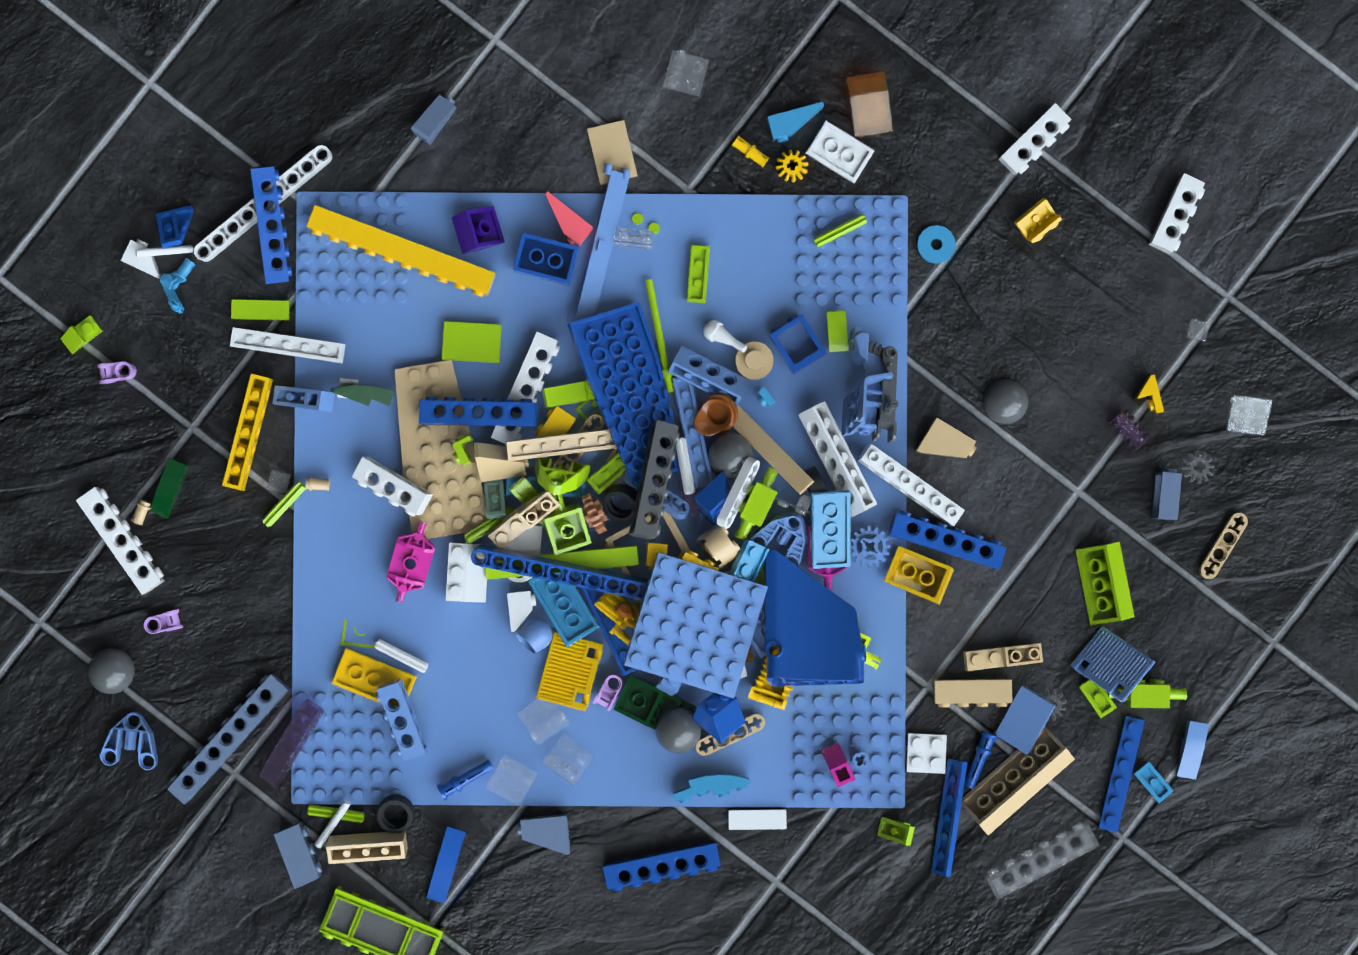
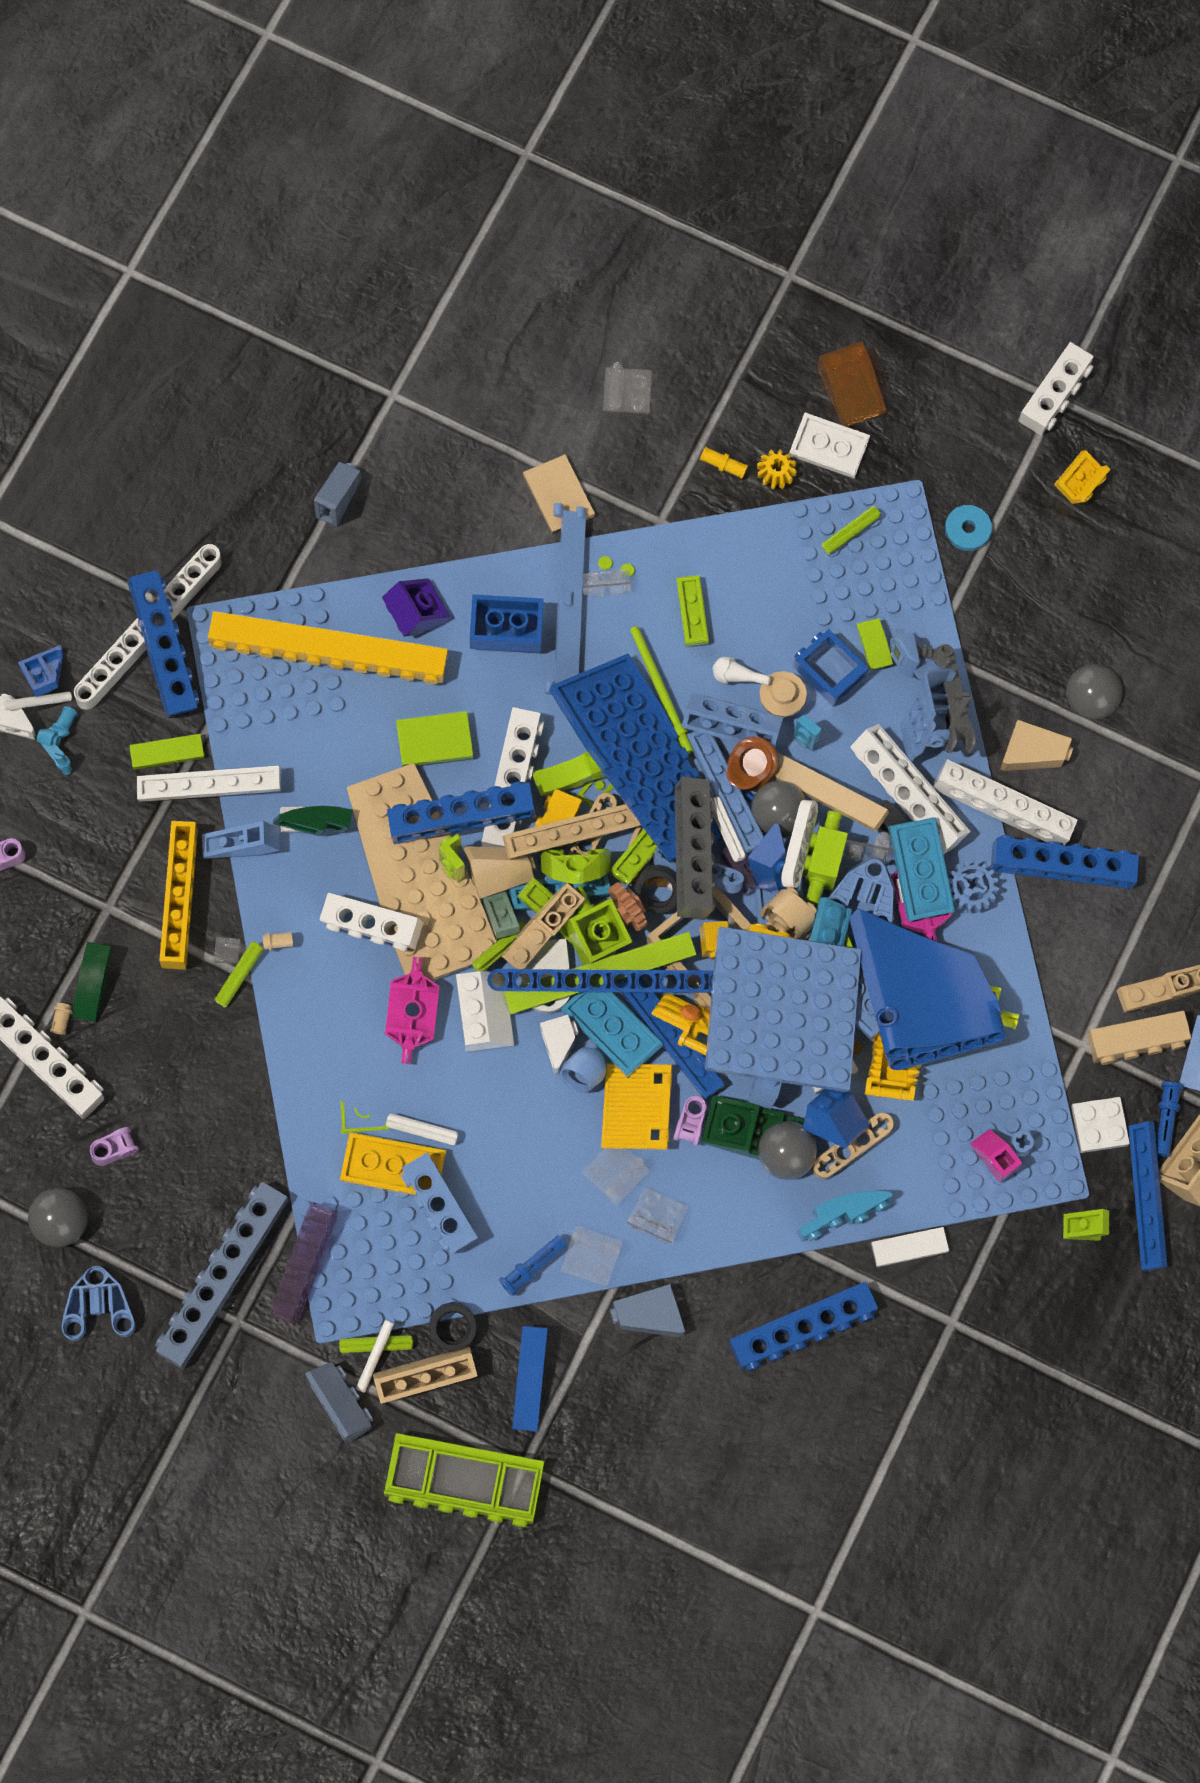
camera: 20 degrees left, 15 degrees down
(572, 225) = (525, 577): coral slope -> none
(789, 122) = (759, 423): dark azure slope -> none
(919, 575) = (1041, 909): yellow slope -> none

